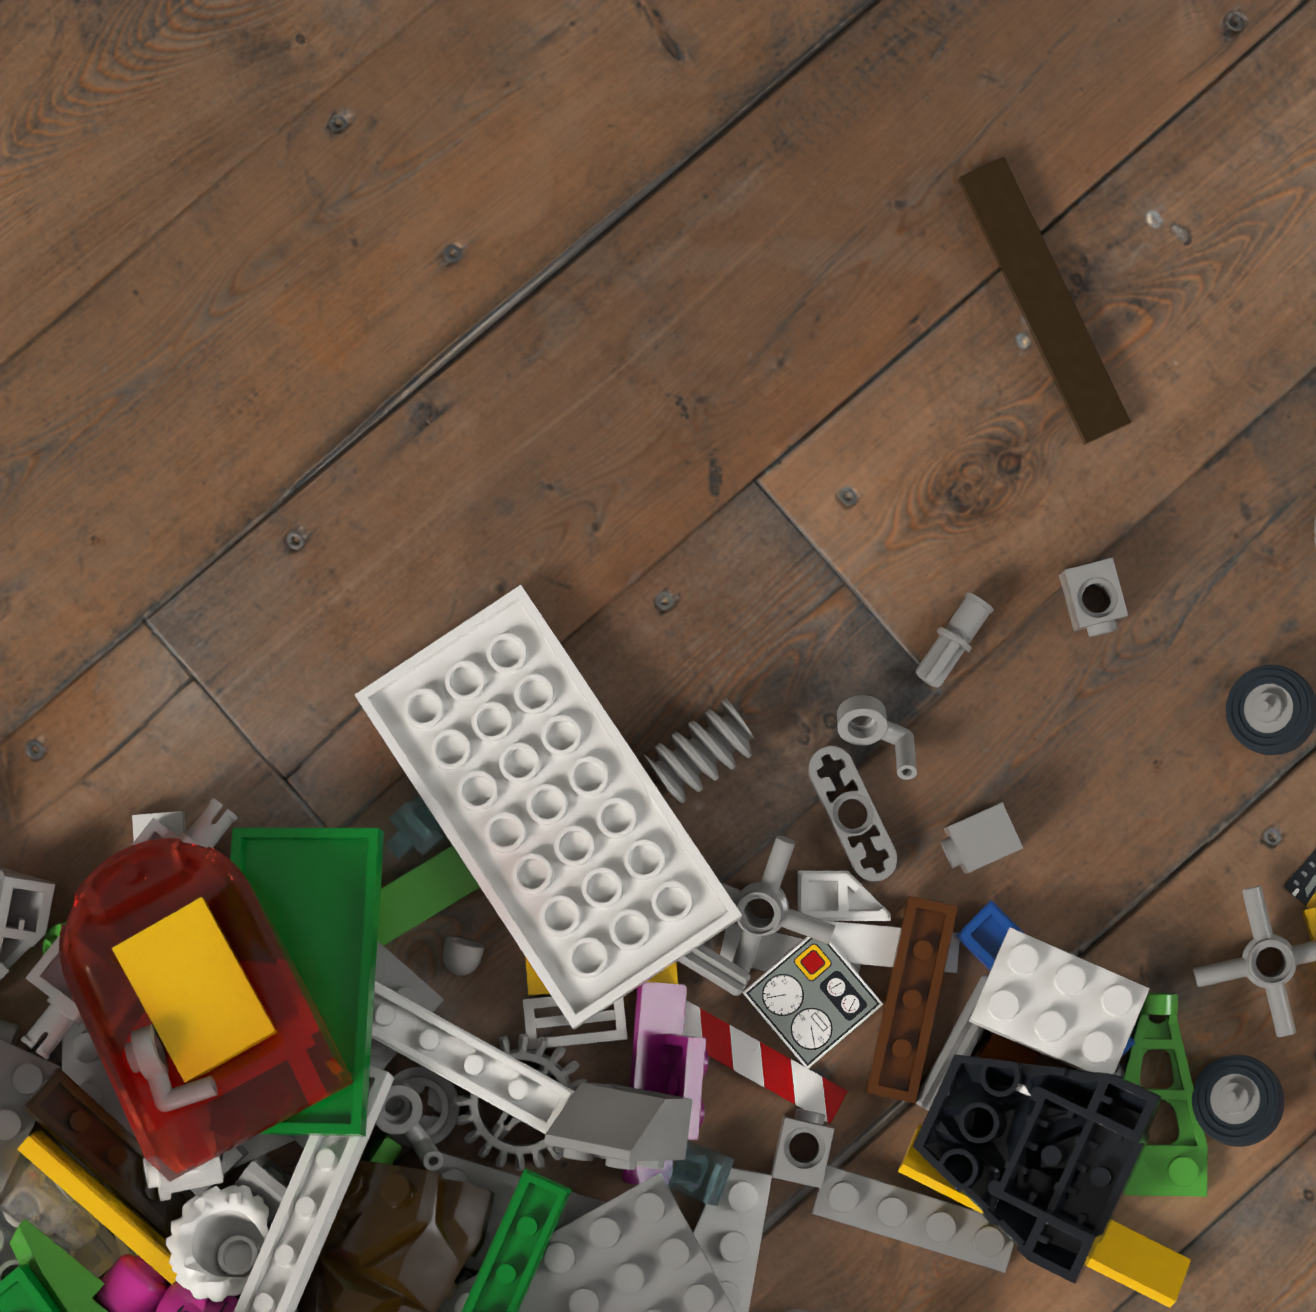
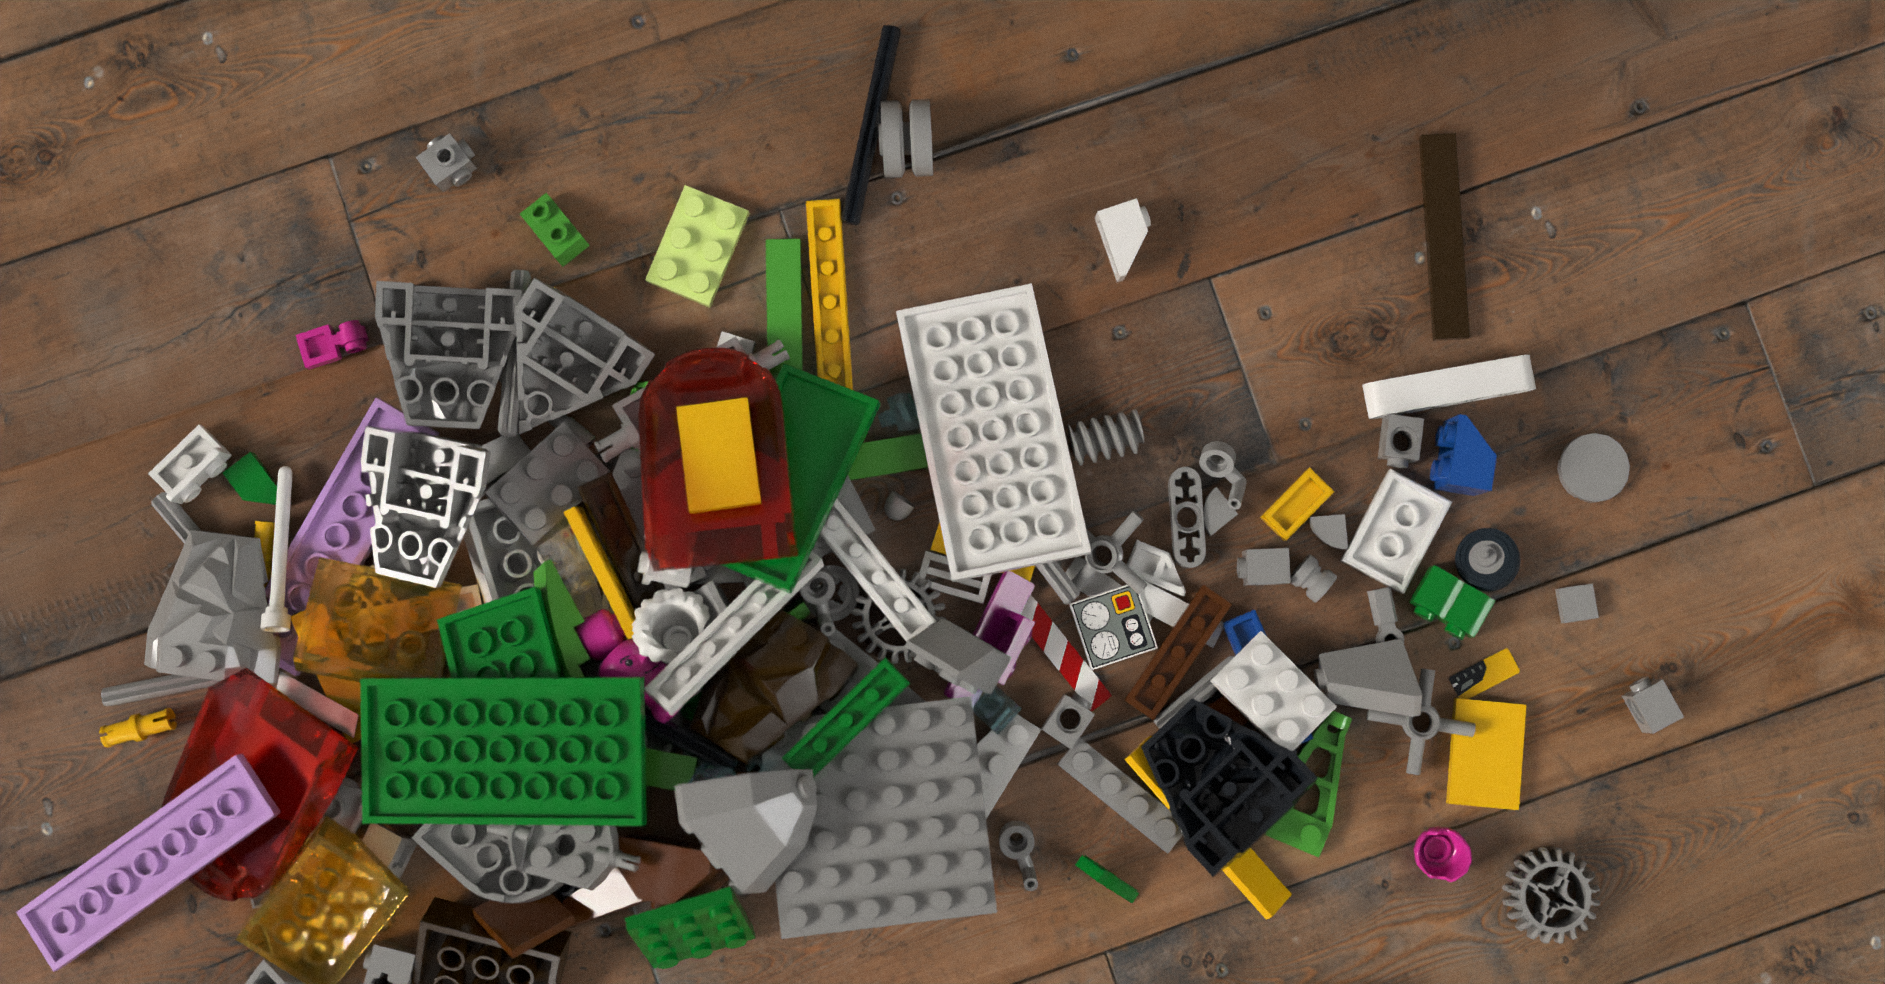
camera: 20 degrees right, 0 degrees up
(53, 713) = (697, 246): none -> yellowish green plate
(149, 1056) = (672, 485): light grey plate -> none
(200, 741) = (784, 300): none -> bright green tile
(221, 457) = (869, 128): none -> black axle
(256, 705) = (829, 291): none -> yellow tile
(275, 459) = (906, 138): none -> light grey wheel
(616, 469) = (1122, 234): none -> white slope
(888, 790) = (1216, 512): none -> light grey tile
(953, 640) = (1298, 431): light grey axle -> none
(991, 736) = (1297, 504): none -> yellow tile
(1045, 827) = (1309, 575): none -> light grey wheel
(1049, 753) = (1330, 530): none -> light grey tile
(1129, 499) = (1449, 386): none -> white beam
(1137, 719) = (1396, 531): none -> white tile
(1165, 838) = (1384, 614): none -> light grey bar
(1179, 931) = (1371, 678): none -> light grey slope
(1186, 591) = (1464, 459): none -> blue slope
(1238, 1100) = (1364, 803): black wheel -> none
(1246, 786) = (1451, 602): none -> green brick

